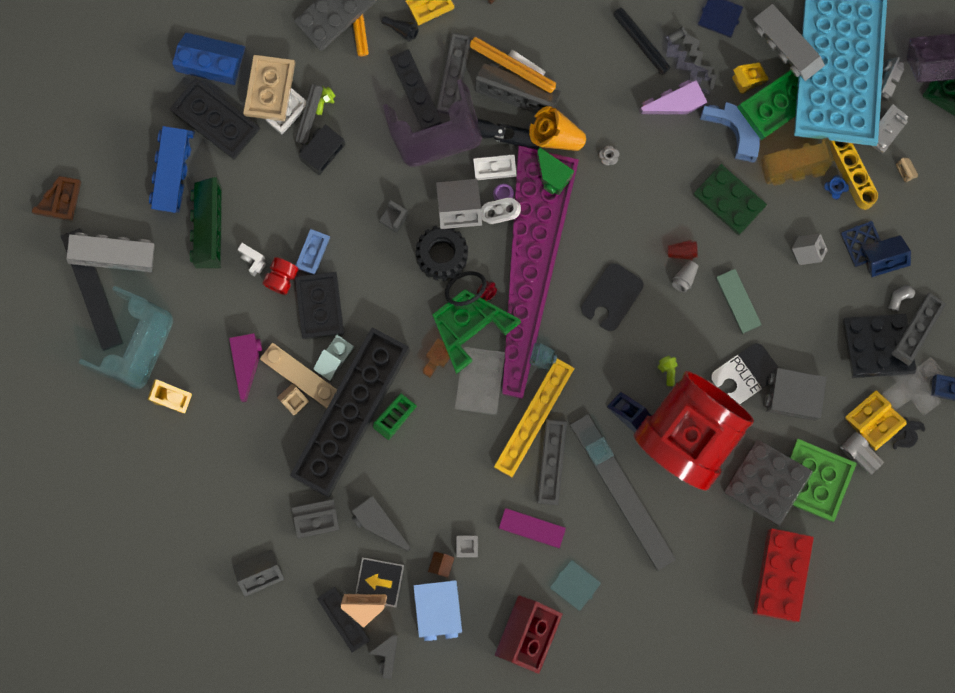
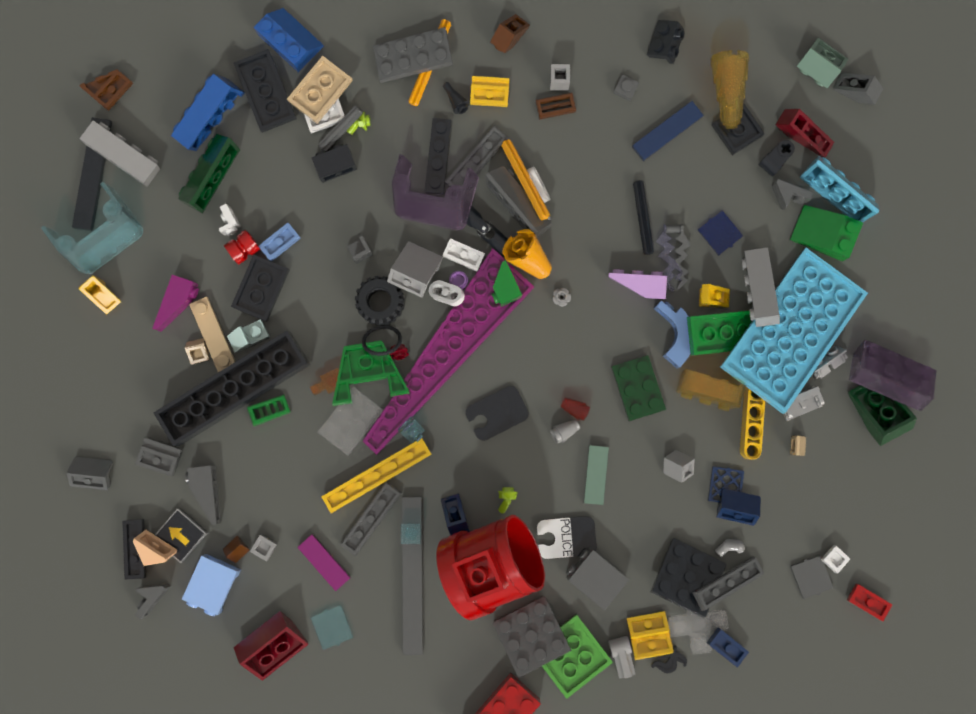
camera: 35 degrees right, 5 degrees up
(842, 186) = (735, 422): blue plate -> none

